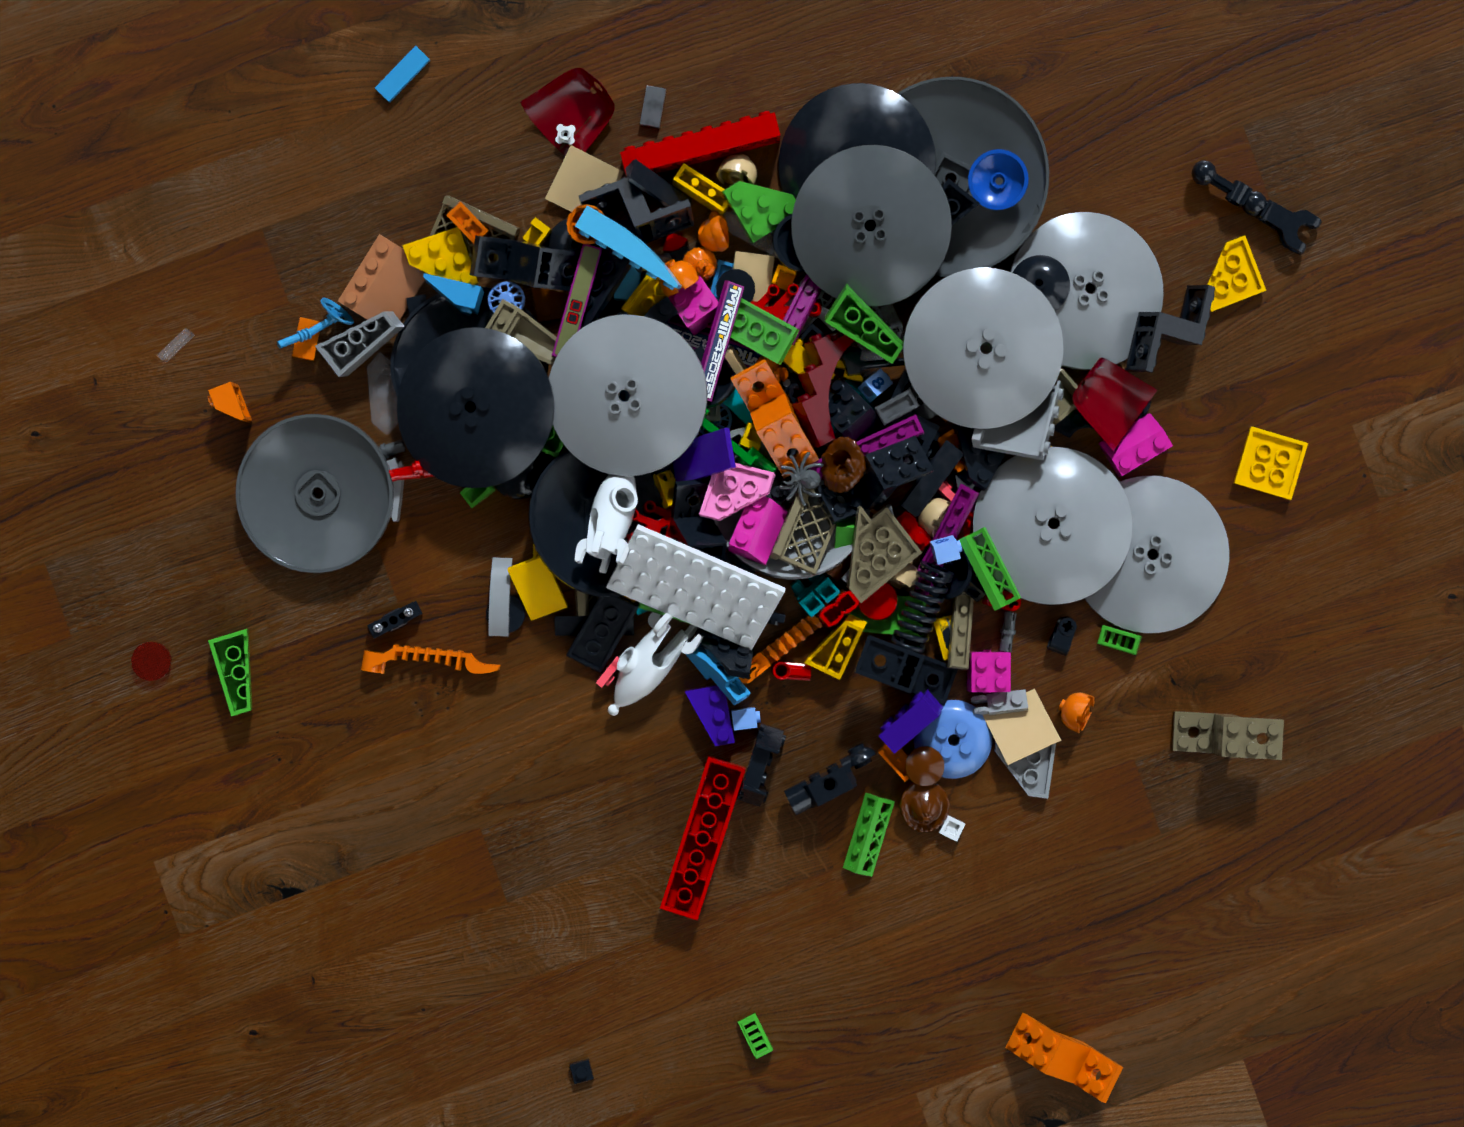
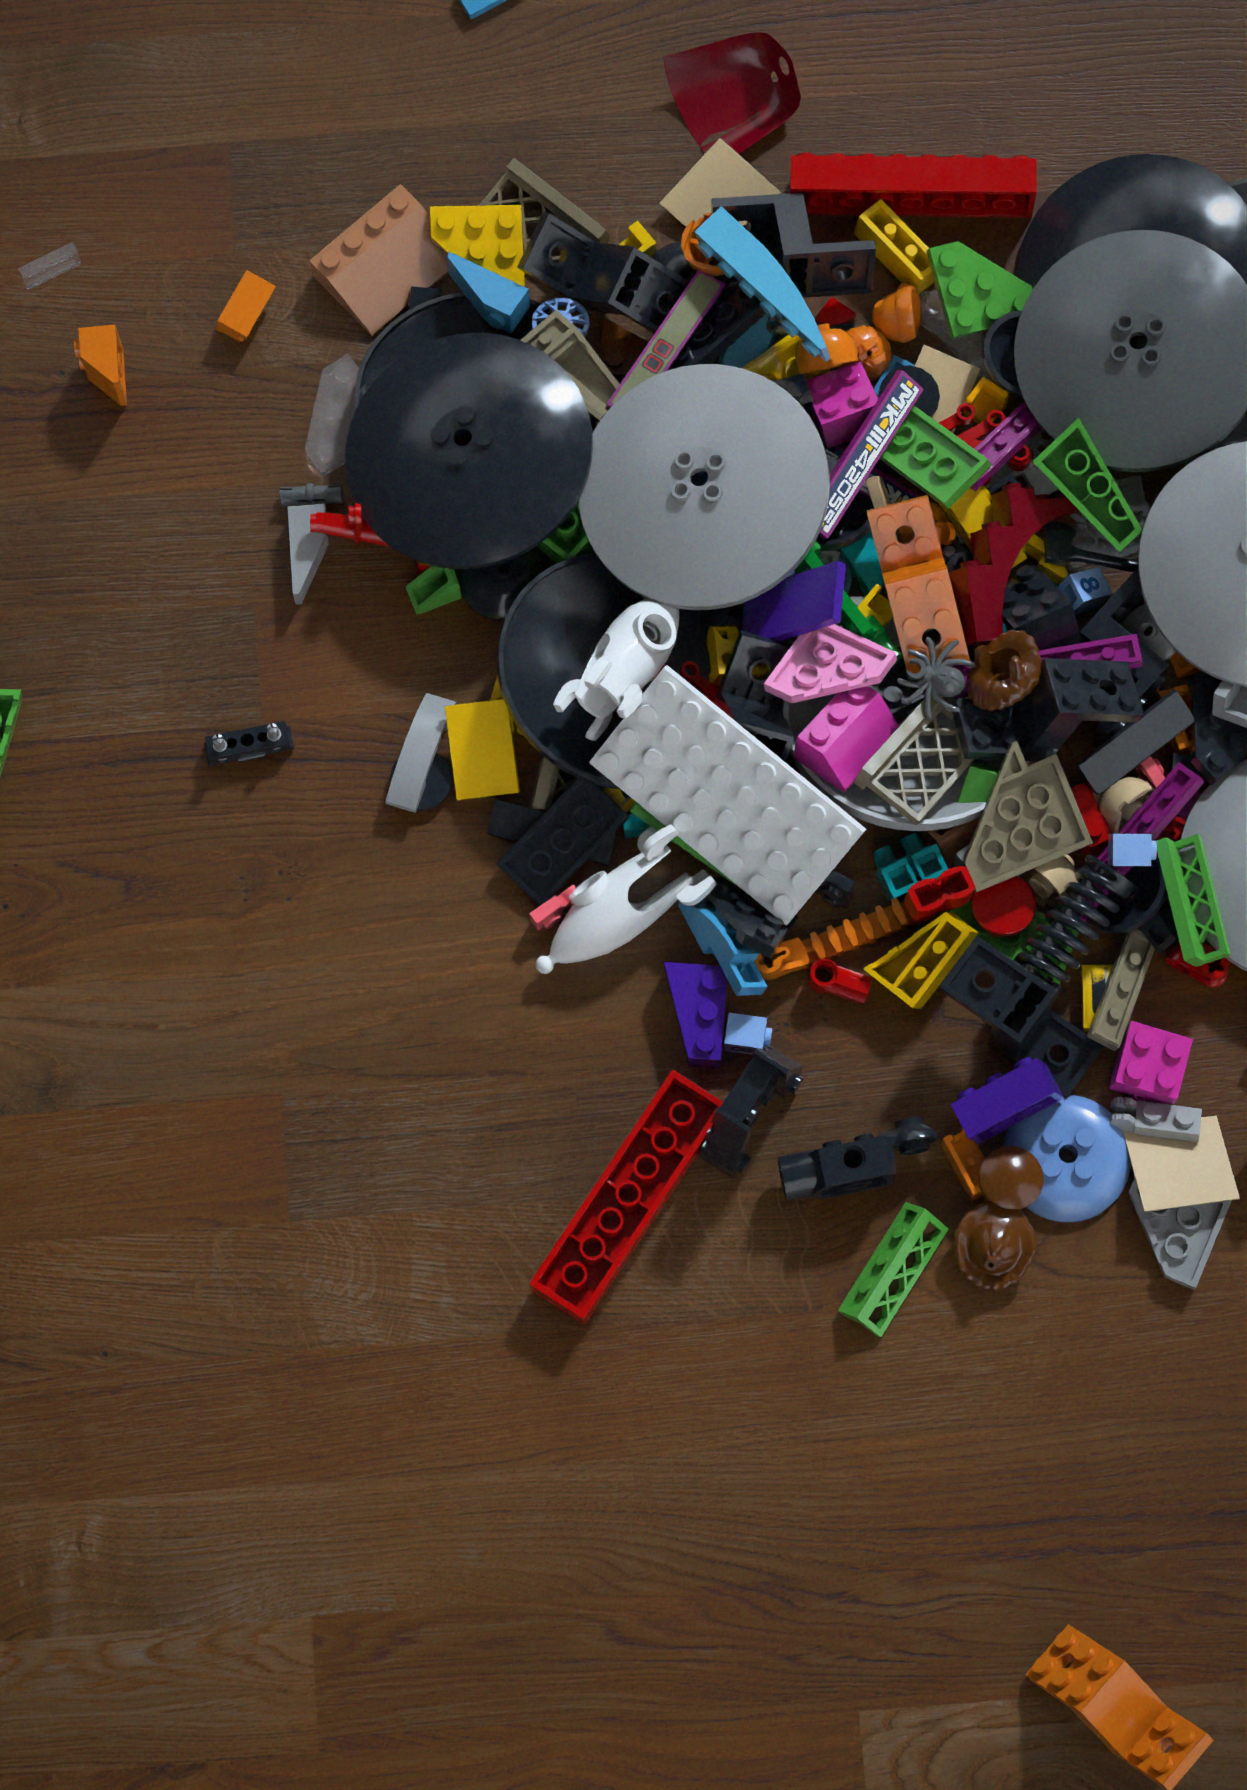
camera: 20 degrees right, 15 degrees down
(279, 500) = (177, 469): dark grey dish -> none
(334, 314) = (244, 293): dark azure dish -> none
(357, 344) = (324, 327): light grey wedge -> none
(376, 661) = (200, 796): orange piece -> none
(466, 222) = (533, 194): orange hinge -> none
(570, 134) = (716, 132): white plate -> none
(581, 1071) = (326, 1520): black plate -> none
(652, 107) = (856, 120): flat silver tile -> none
(654, 184) = (824, 207): black slope -> none
(737, 168) = (956, 226): tan cylinder -> none
(757, 1054) = (629, 1566): bright green slope -> none
(896, 407) = (1109, 618): flat silver tile -> none
(952, 828) = (1029, 1294): white plate -> none
(1007, 631) = (1197, 1010): dark grey pin -> none

